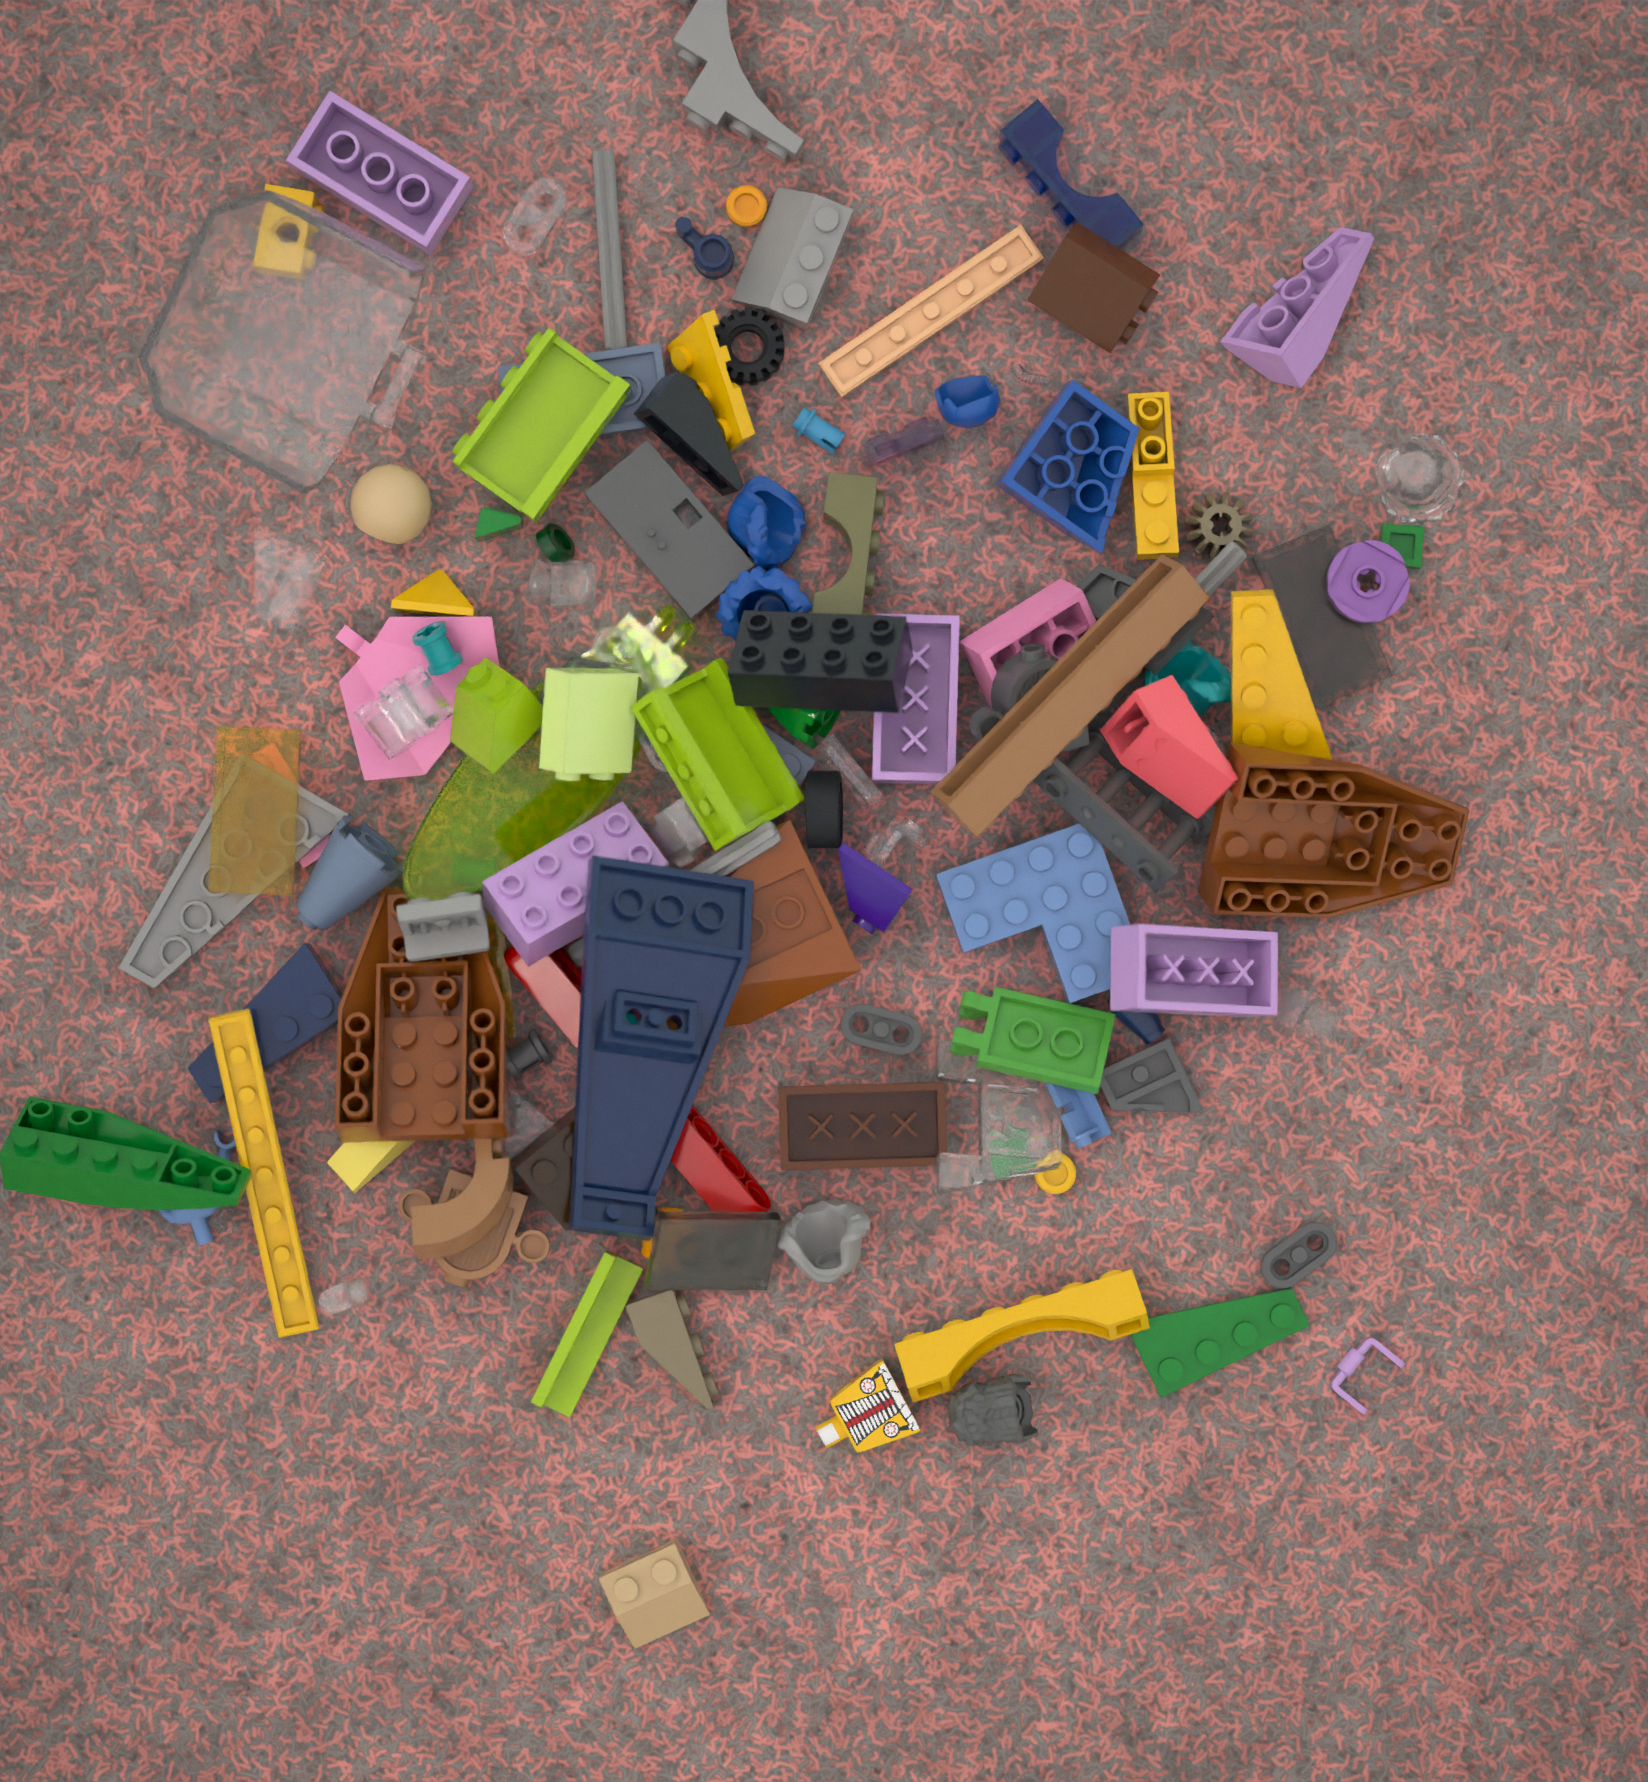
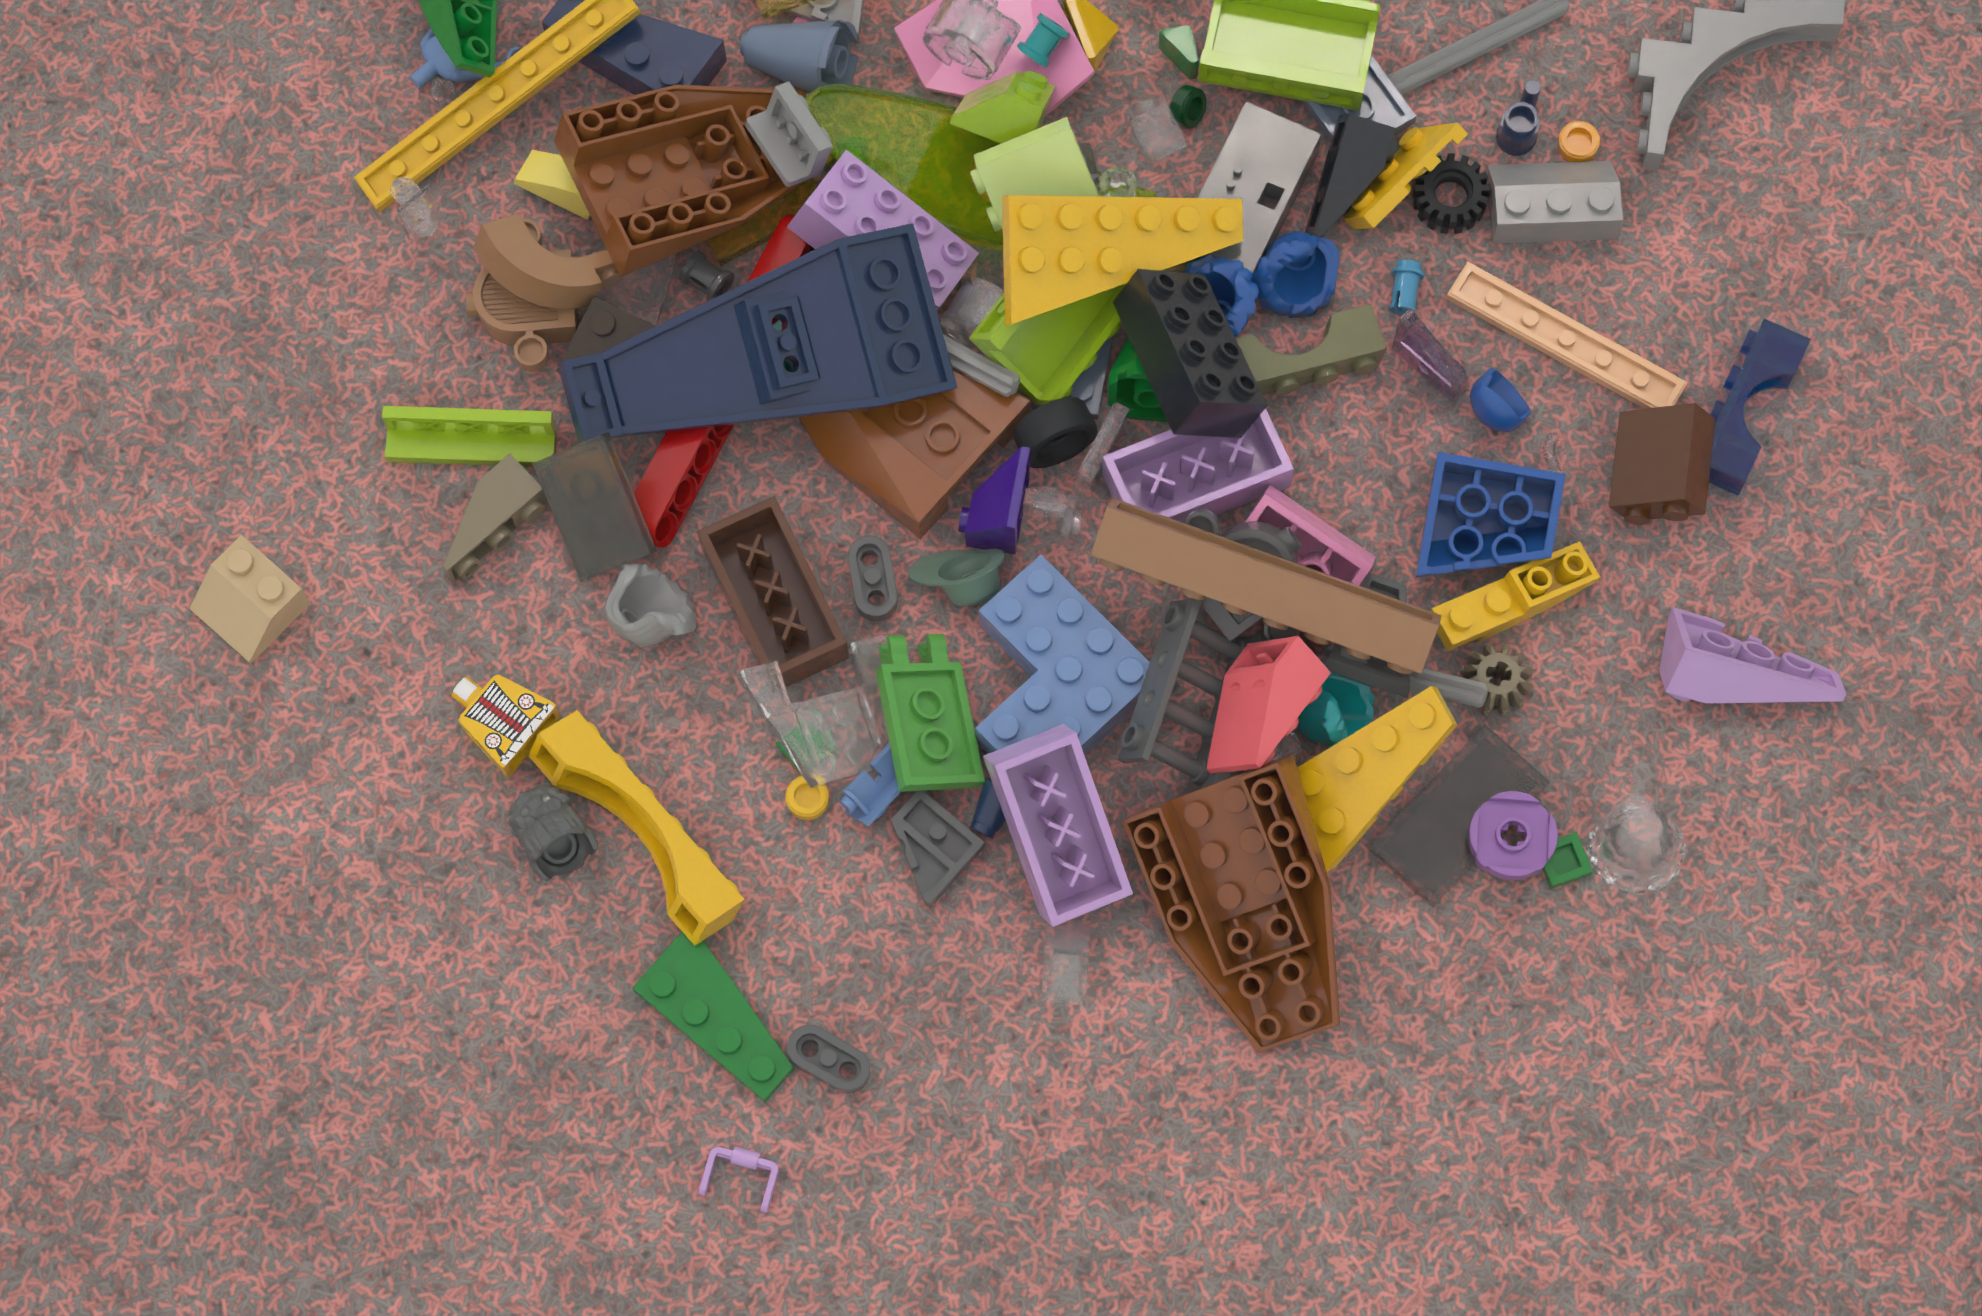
camera: 70 degrees right, 15 degrees down
(683, 708) = (1089, 244): none -> yellow wing
(913, 950) = (963, 575): none -> sand green piece

